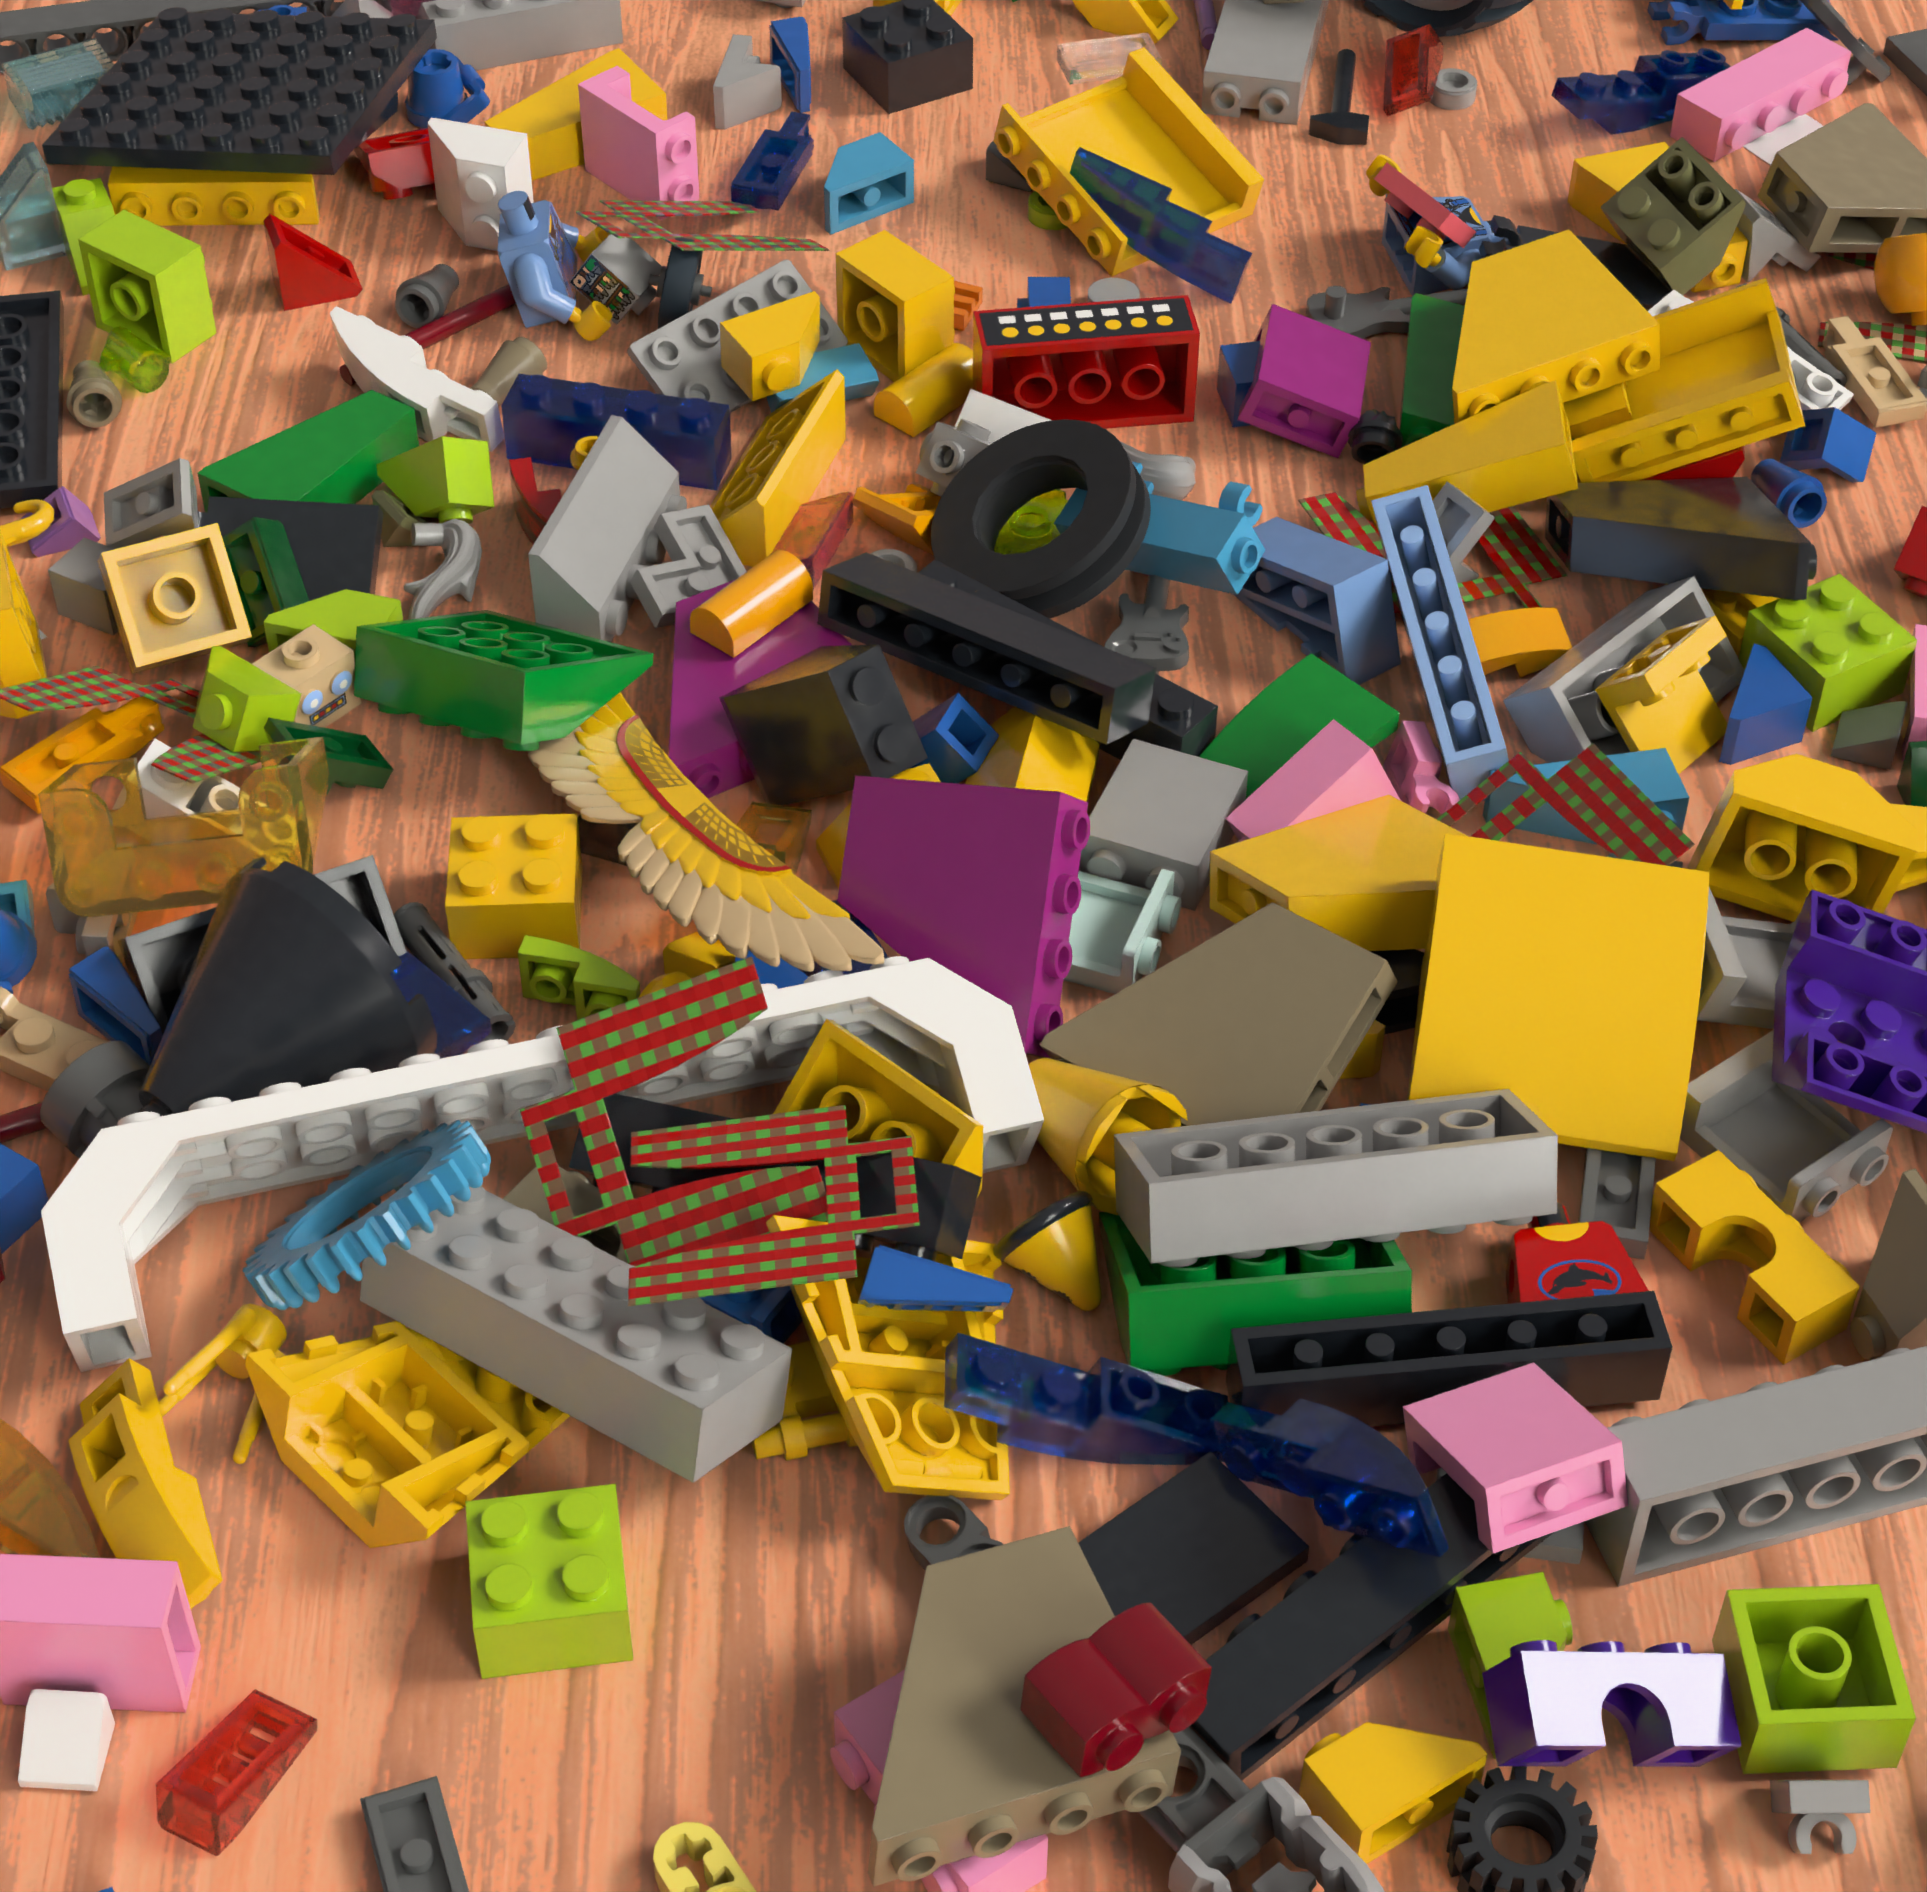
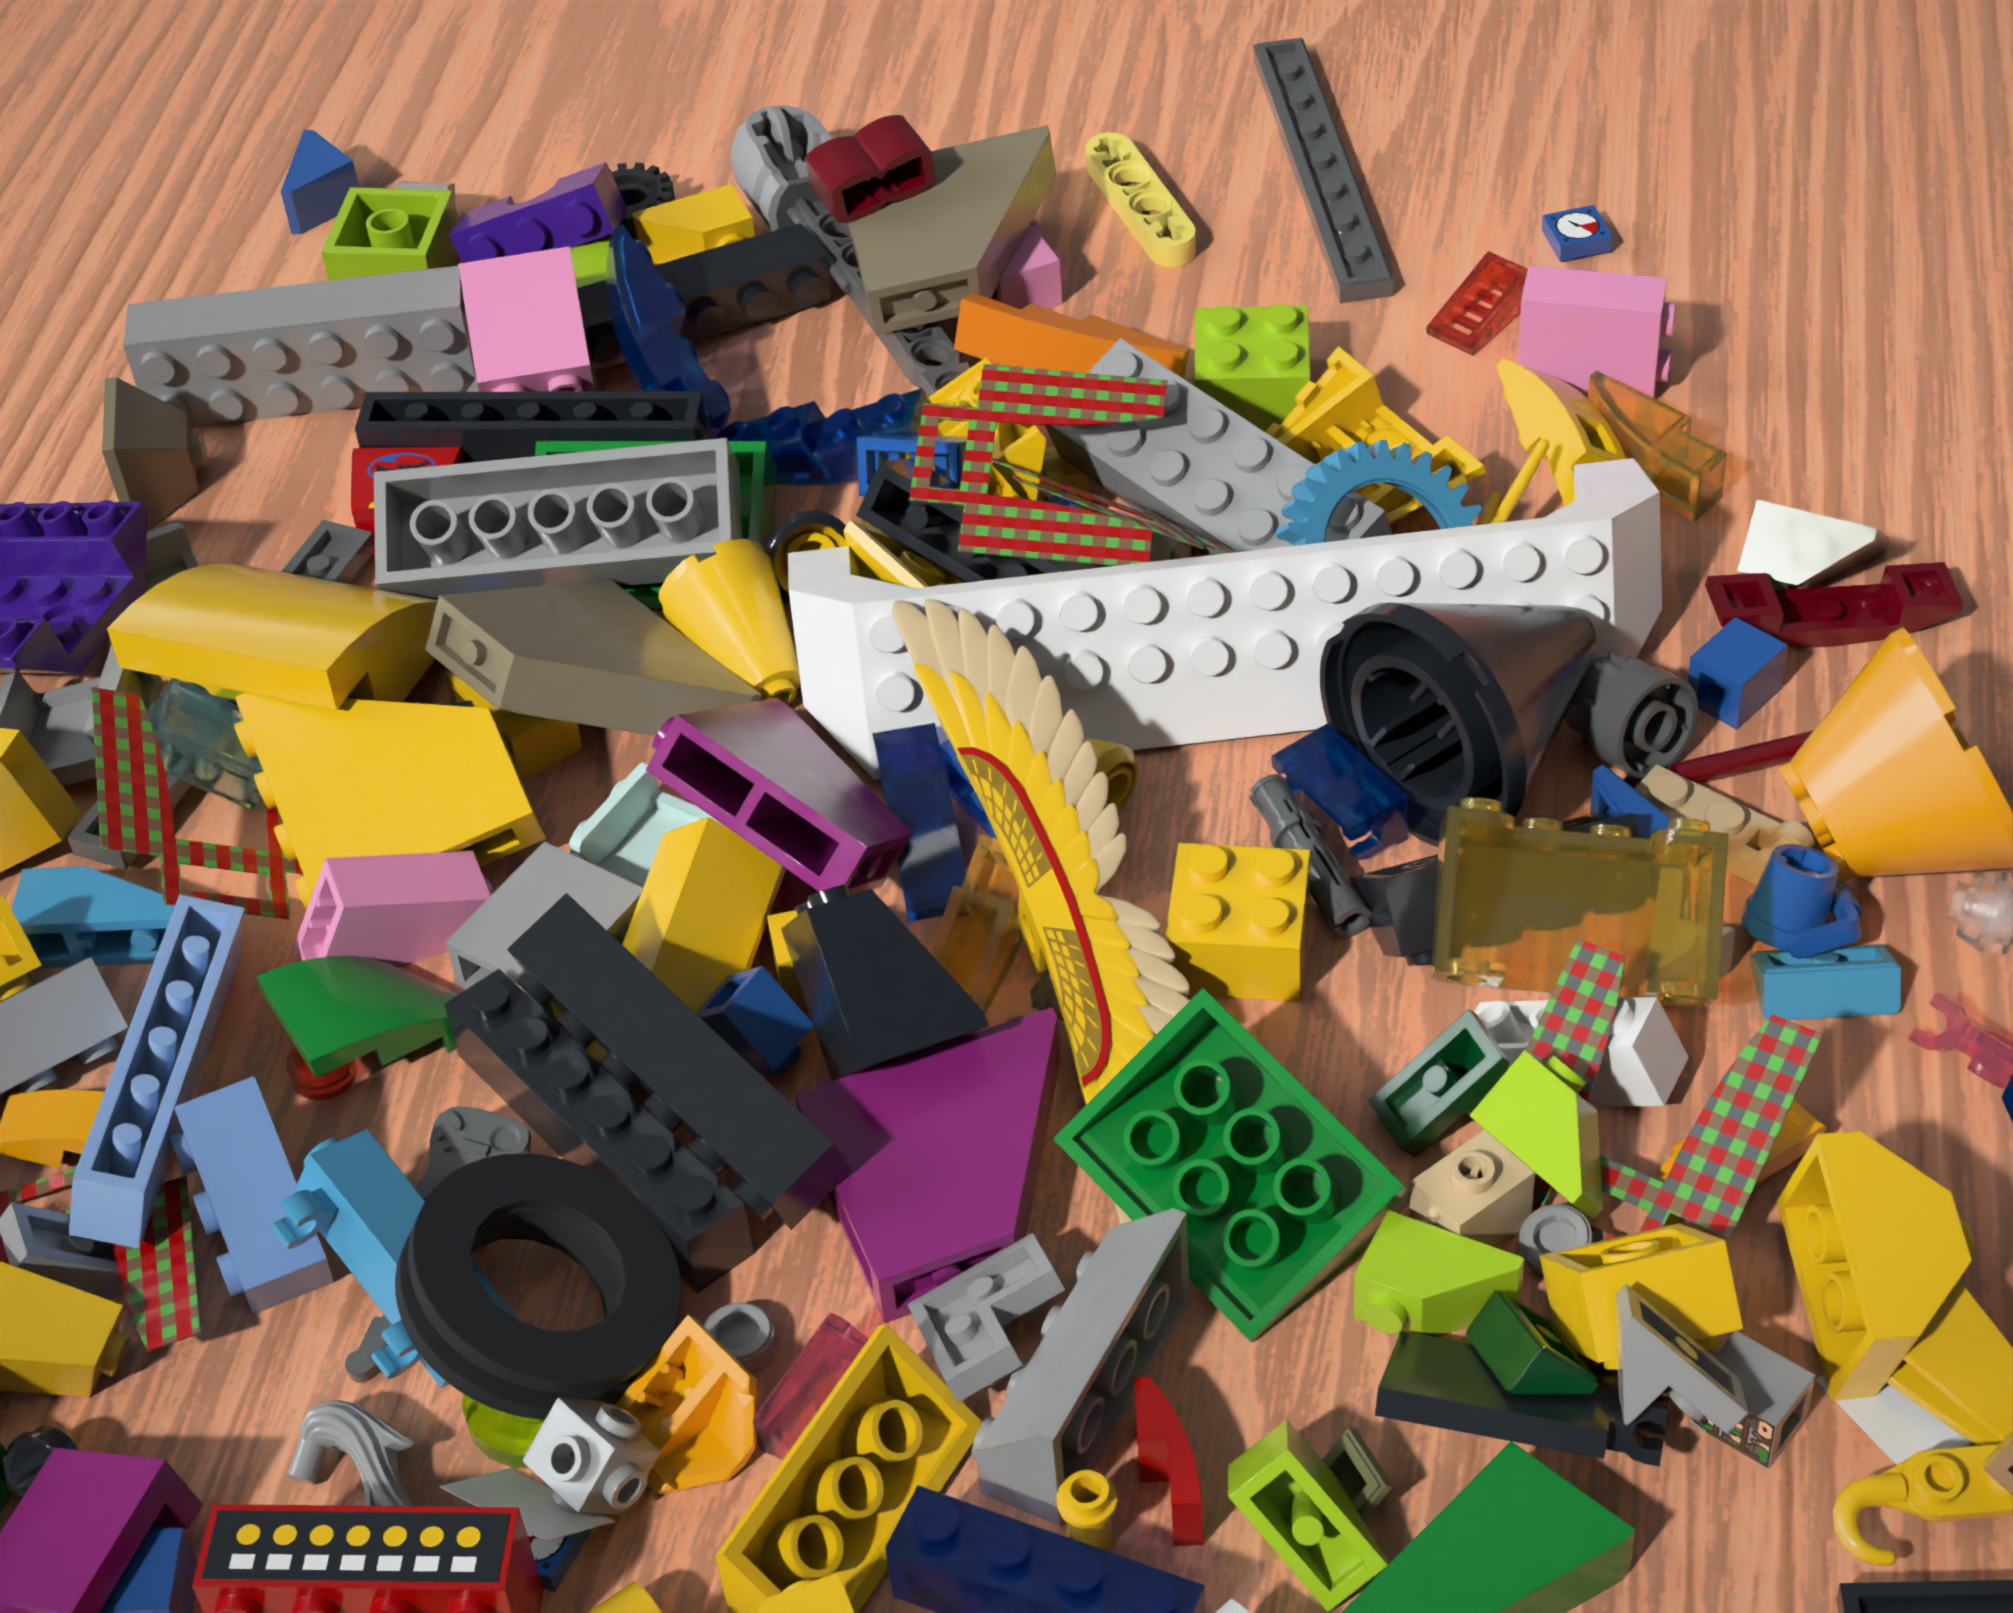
camera: 165 degrees left, 0 degrees up
(70, 525) = (1816, 1559): medium lavender slope -> none
(455, 574) = (1288, 1386): light grey piece -> none
(572, 977) = (1163, 813): lime slope -> none
(753, 603) = (926, 1185): light orange brick -> none
(769, 1573) = (1049, 339): none -> orange slope
(1193, 1549) = (796, 365): black tile -> none
(1415, 767) = (258, 954): bright pink plate -> none
(1796, 1288) = (240, 504): yellow arch -> none

